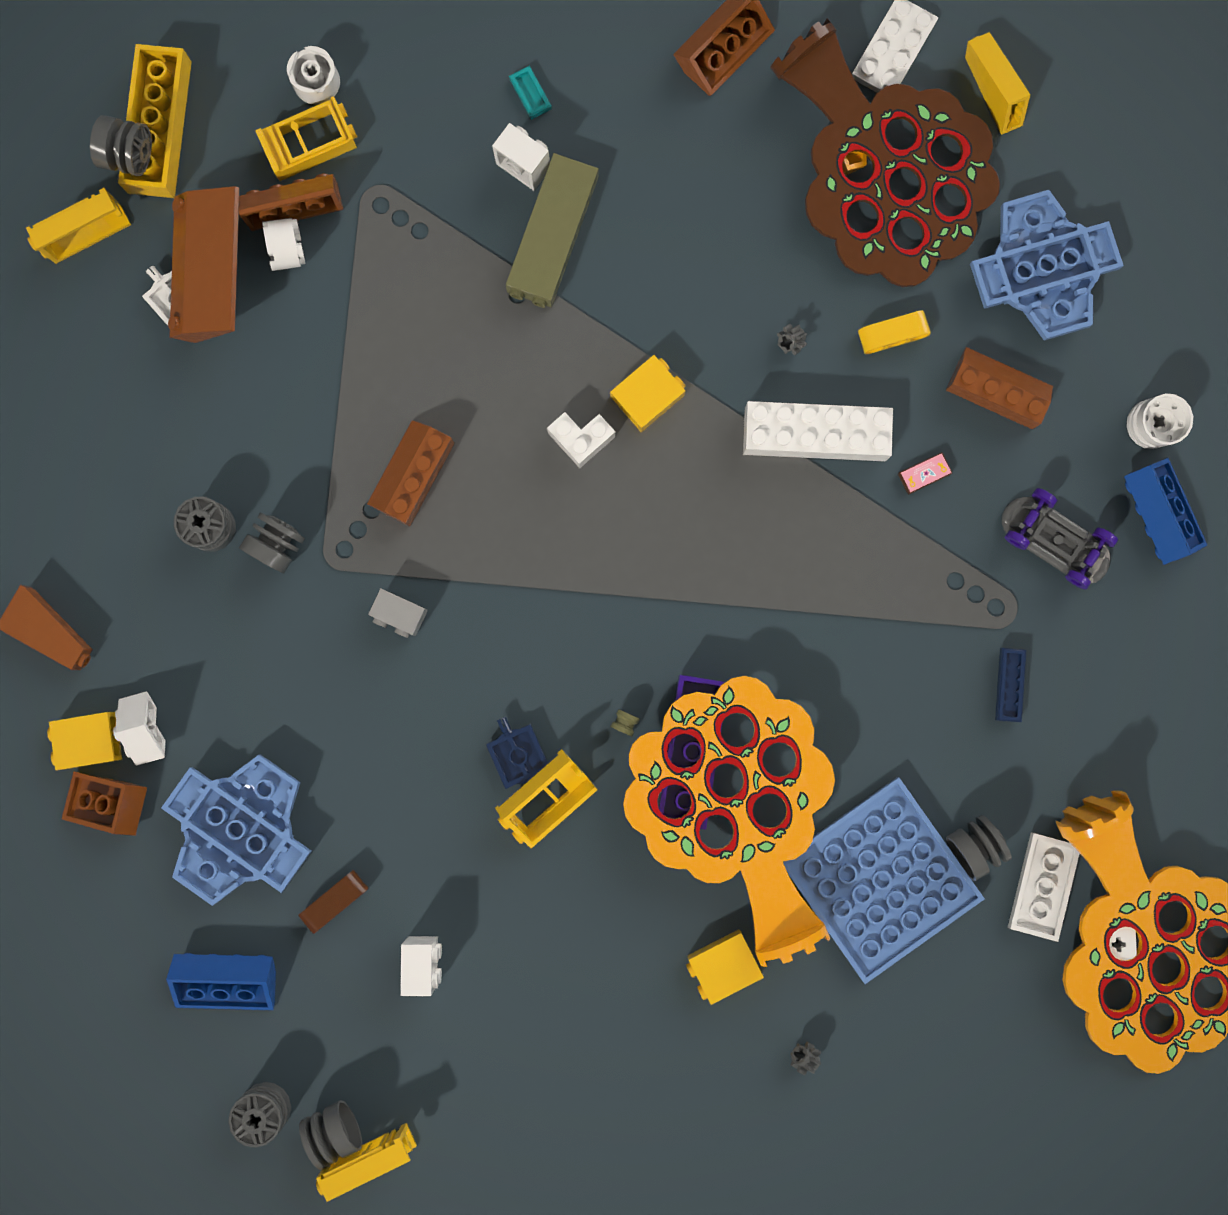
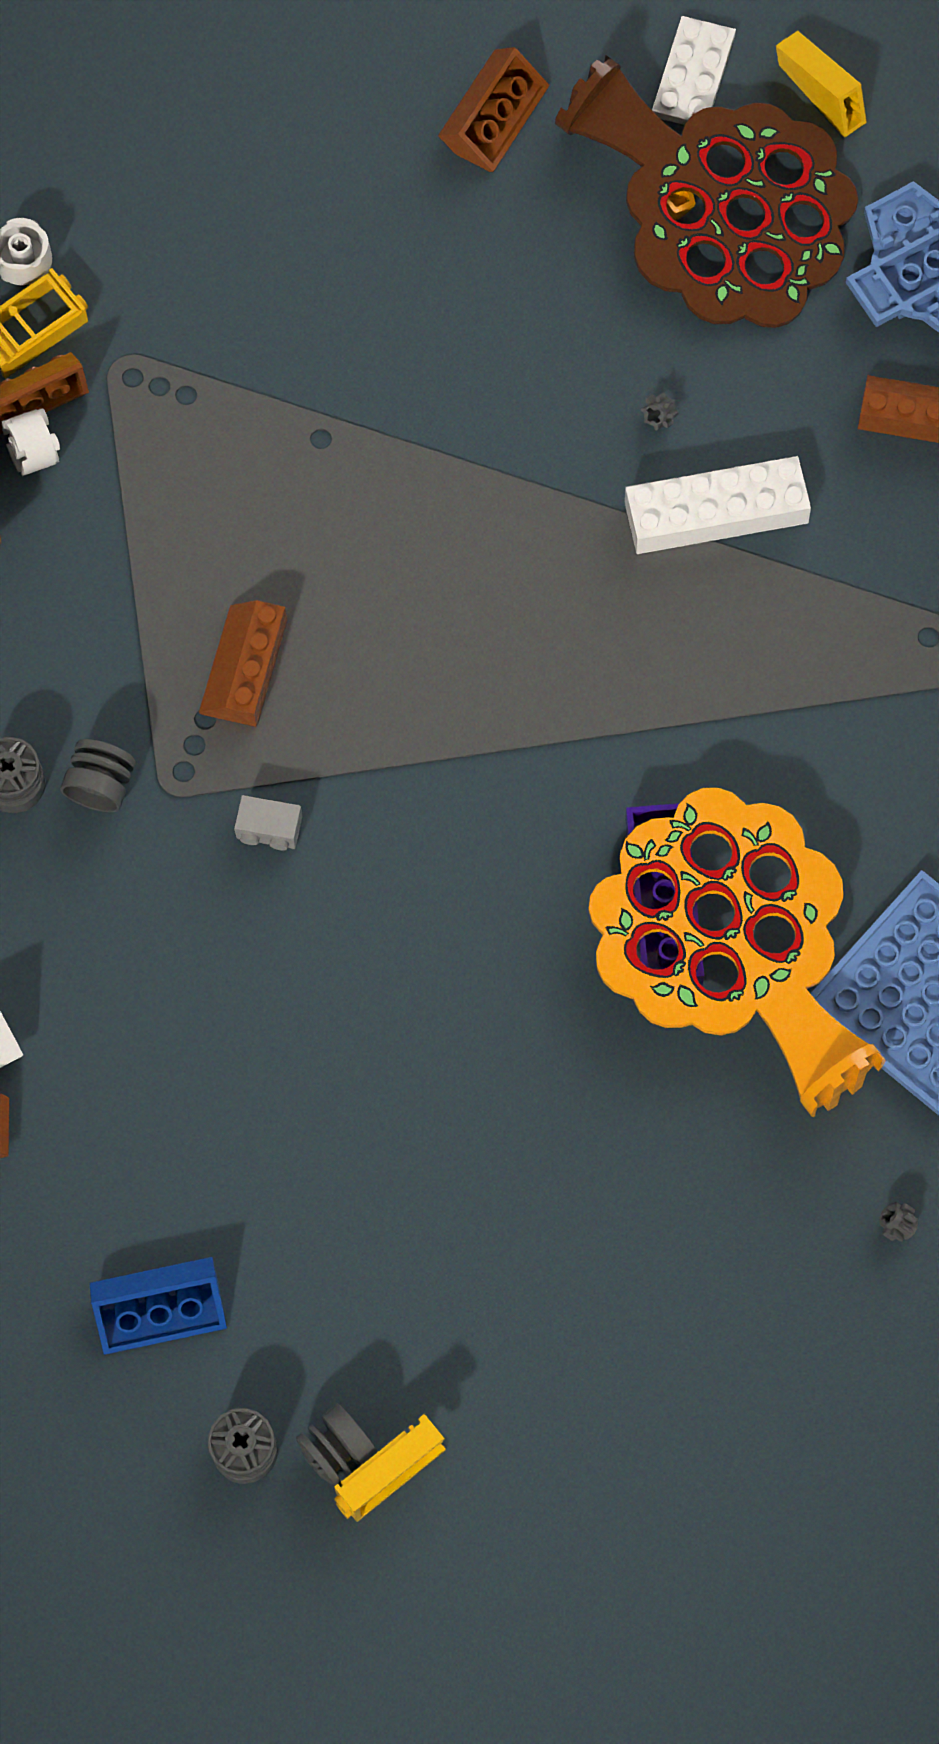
camera: 10 degrees left, 15 degrees down
(236, 829) = (132, 1117): medium blue plate -> none
(333, 902) = (271, 1178): reddish brown beam -> none
(419, 965) = (397, 1220): white brick -> none
(516, 754) = (455, 955): dark blue plate -> none
(521, 156) = (290, 283): white brick -> none
(530, 92) = (279, 215): teal tile -> none
(552, 231) = (345, 358): olive brick -> none
(570, 776) = (523, 961): yellow door -> none
(581, 443) = (438, 582): white brick -> none
(625, 722) = (575, 885): olive wheel -> none
(648, 392) = (505, 509): yellow brick -> none
(723, 967) = (770, 1139): yellow brick -> none
(894, 332) = (778, 377): yellow beam -> none
(925, 473) = (858, 524): bright pink tile -> none

